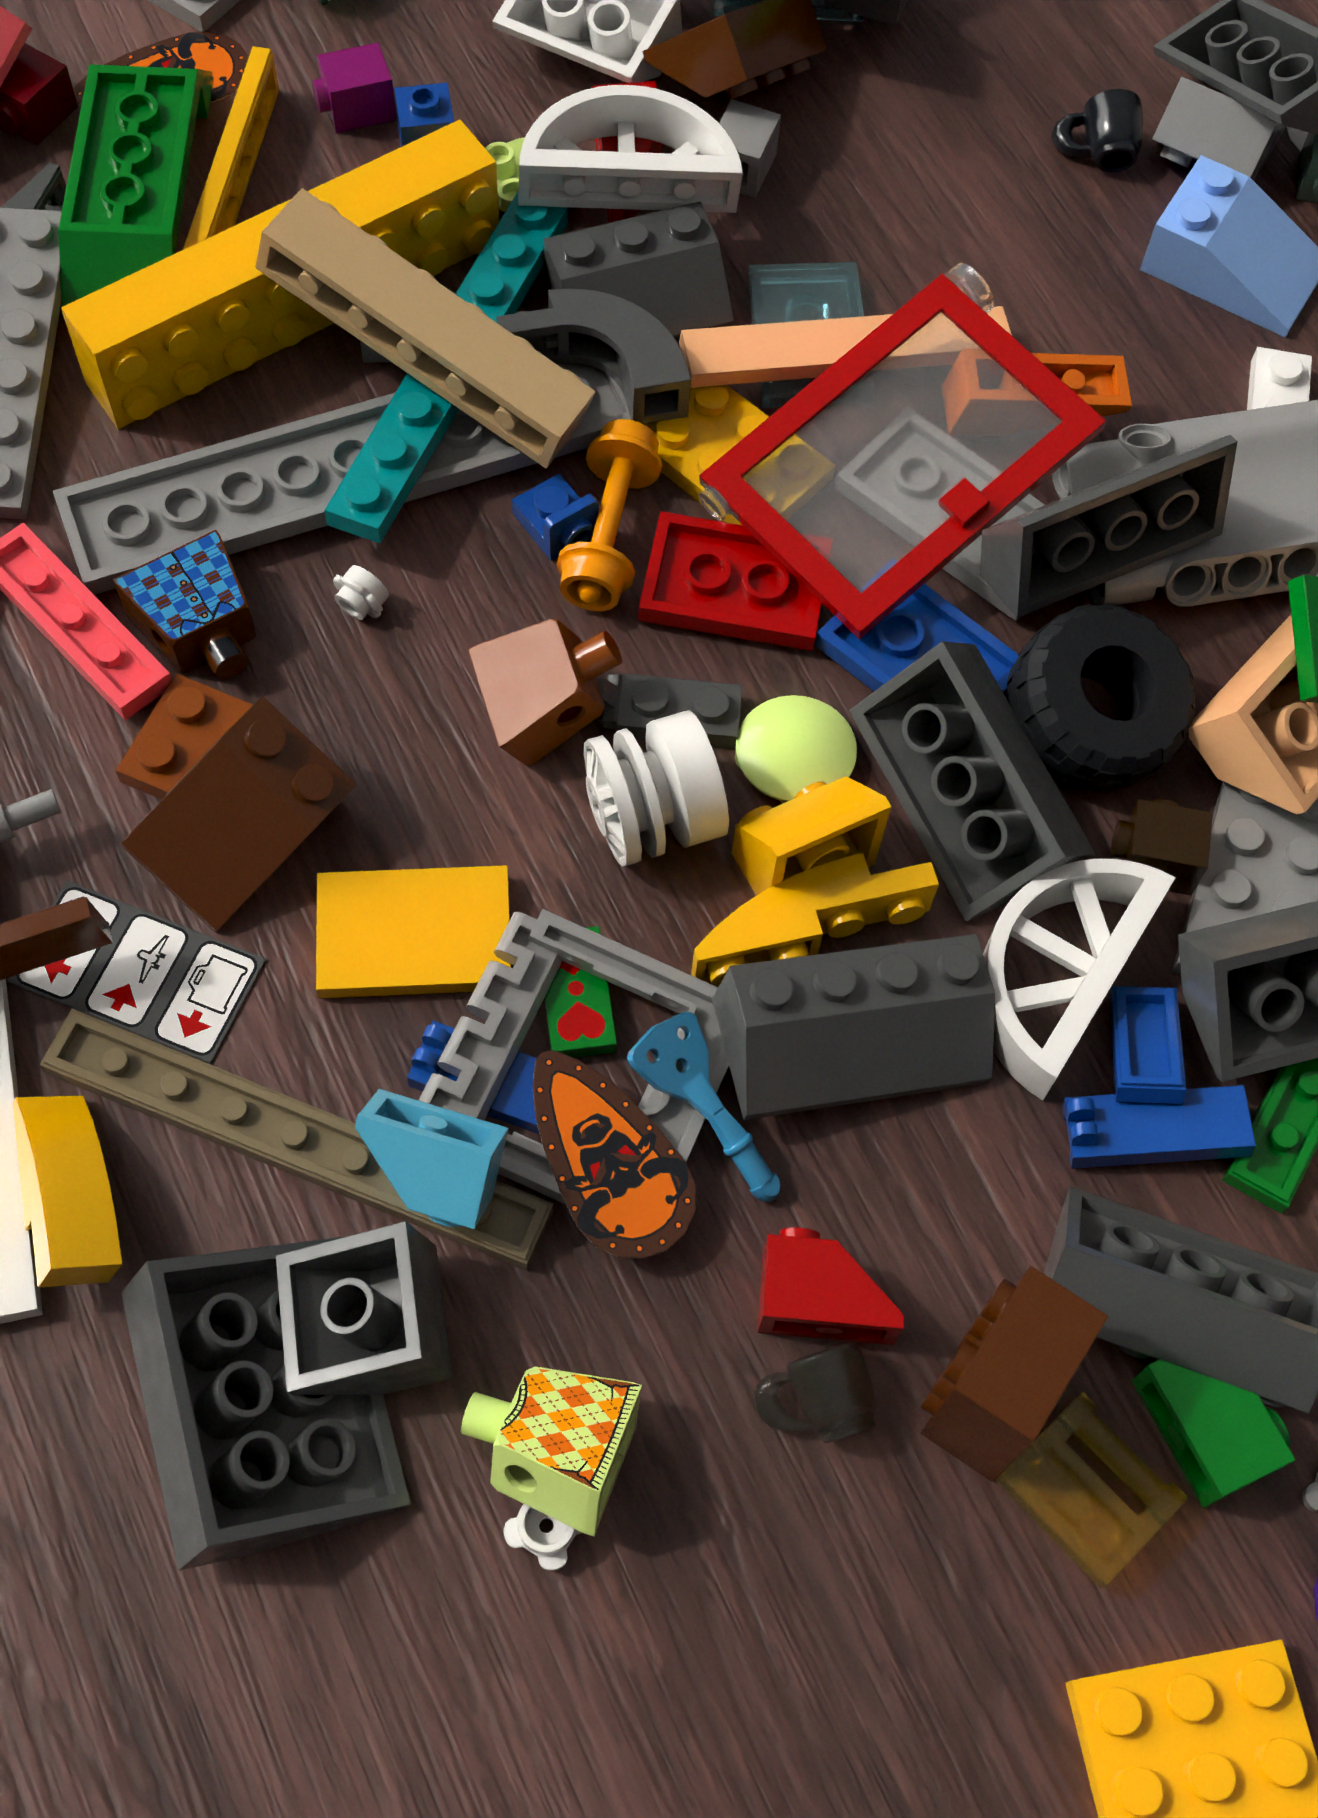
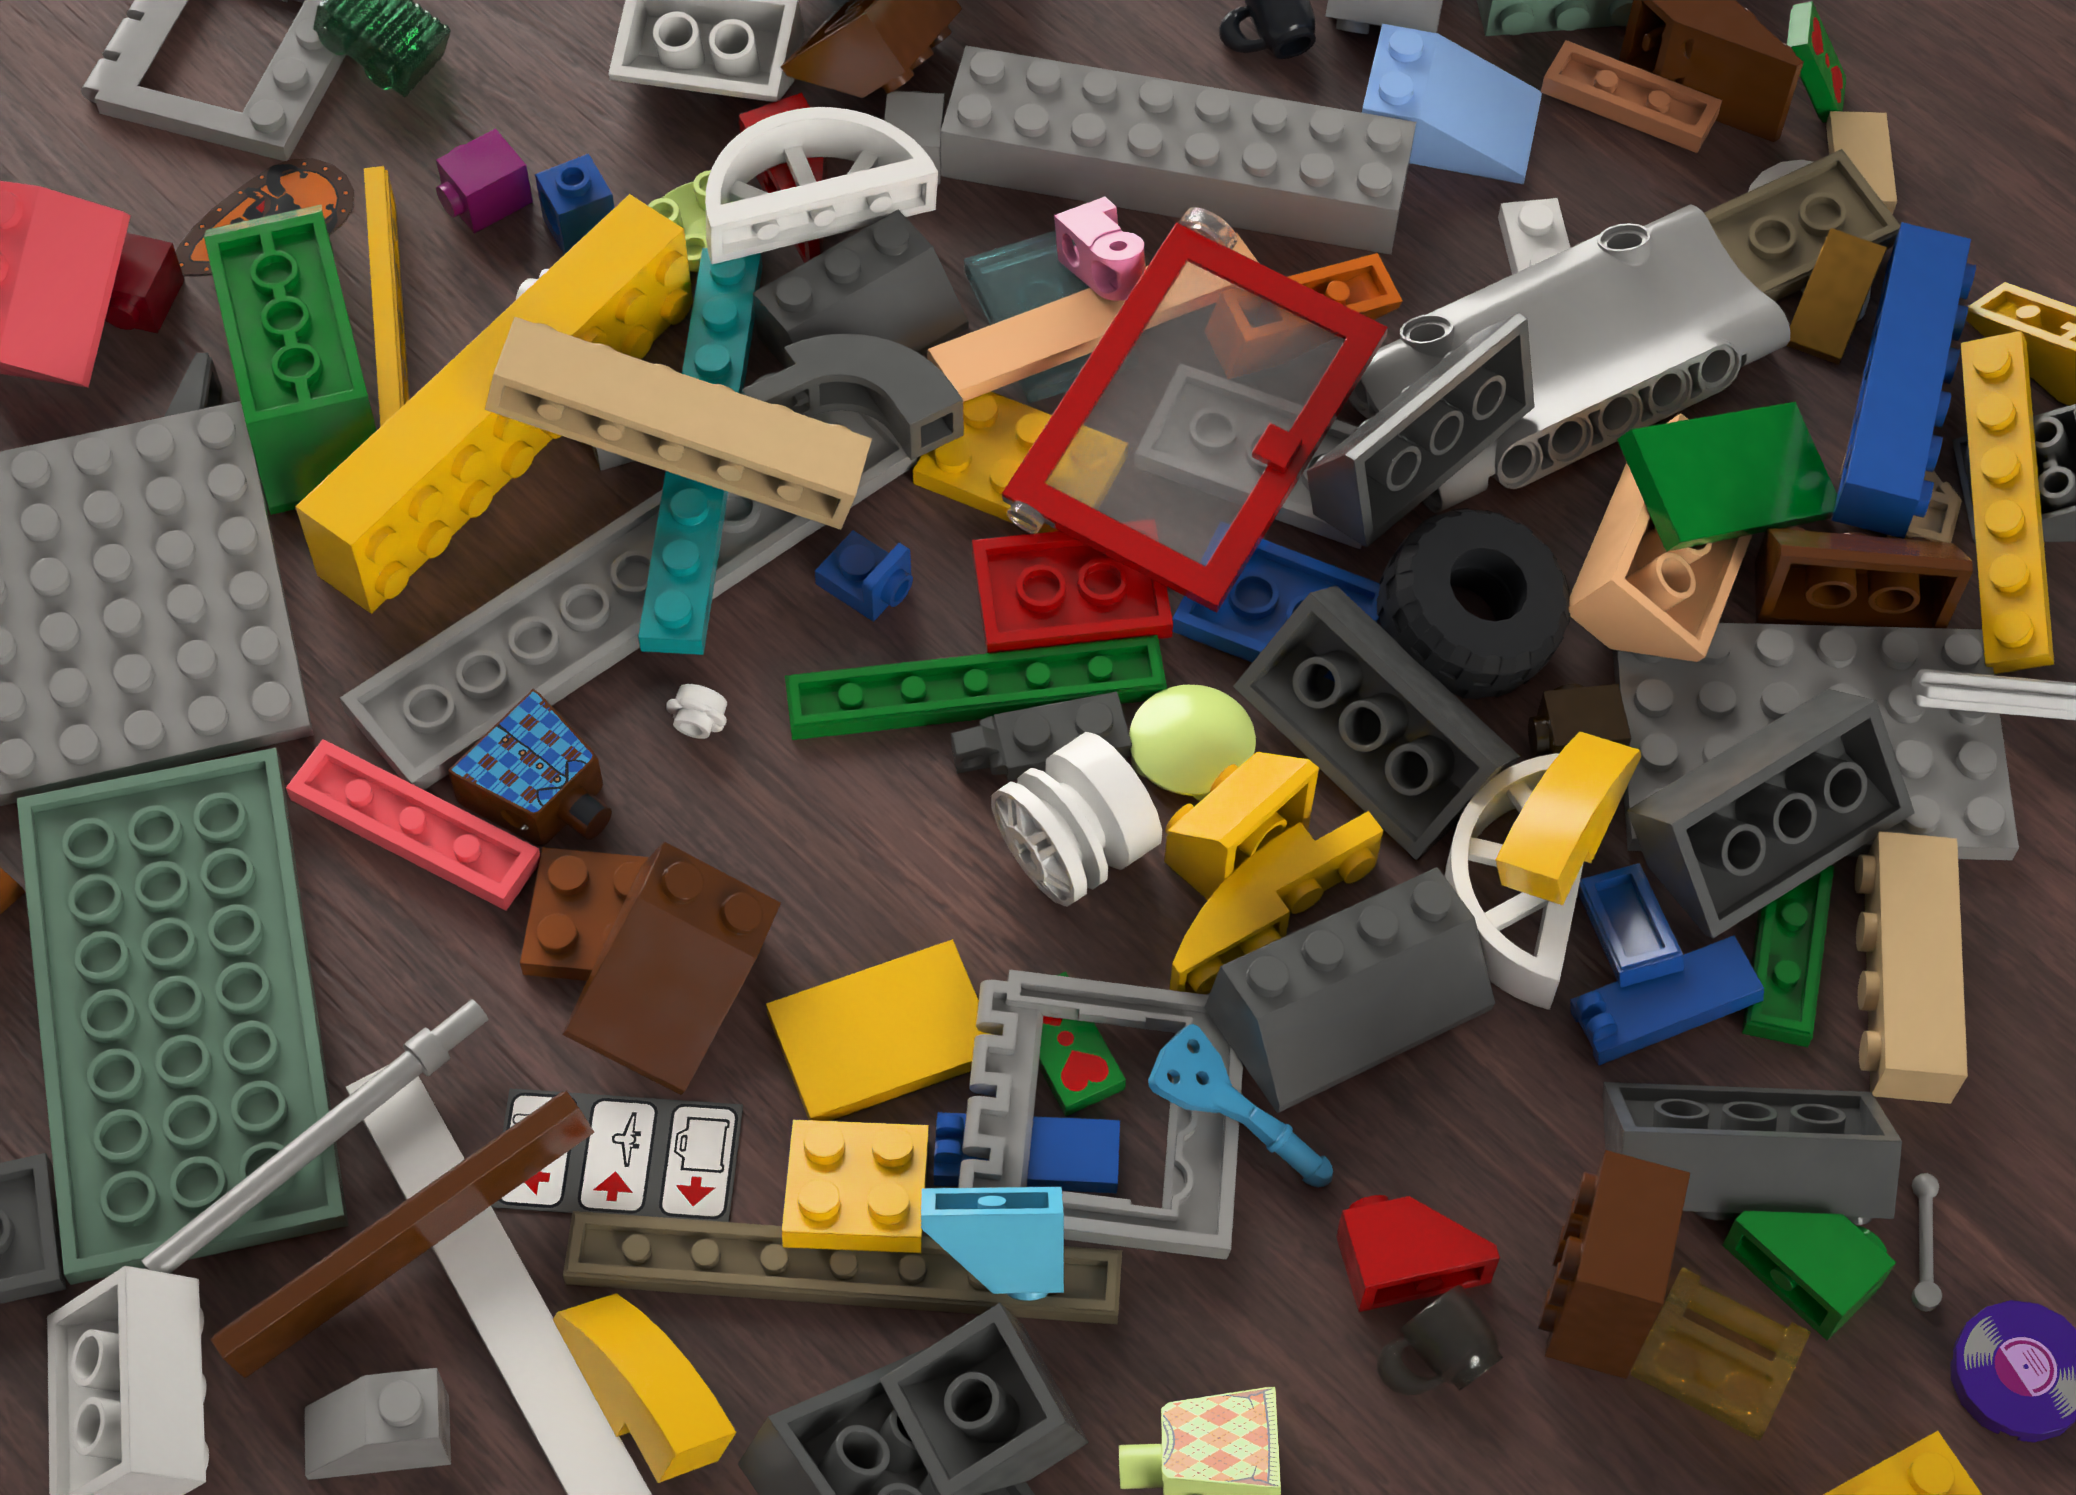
camera: 15 degrees left, 5 degrees down
(328, 1063) = (855, 1186): none -> yellow plate
(542, 685) = (923, 749): torso -> none
(594, 570) = (931, 620): light orange piece -> none
(610, 1160) = (1164, 1190): sticker -> none
(645, 644) = (970, 686): none -> green tile
(867, 282) = (1102, 252): none -> bright pink leg
(954, 205) = (1177, 148): none -> light grey brick
(1115, 923) = (1566, 817): none -> yellow slope

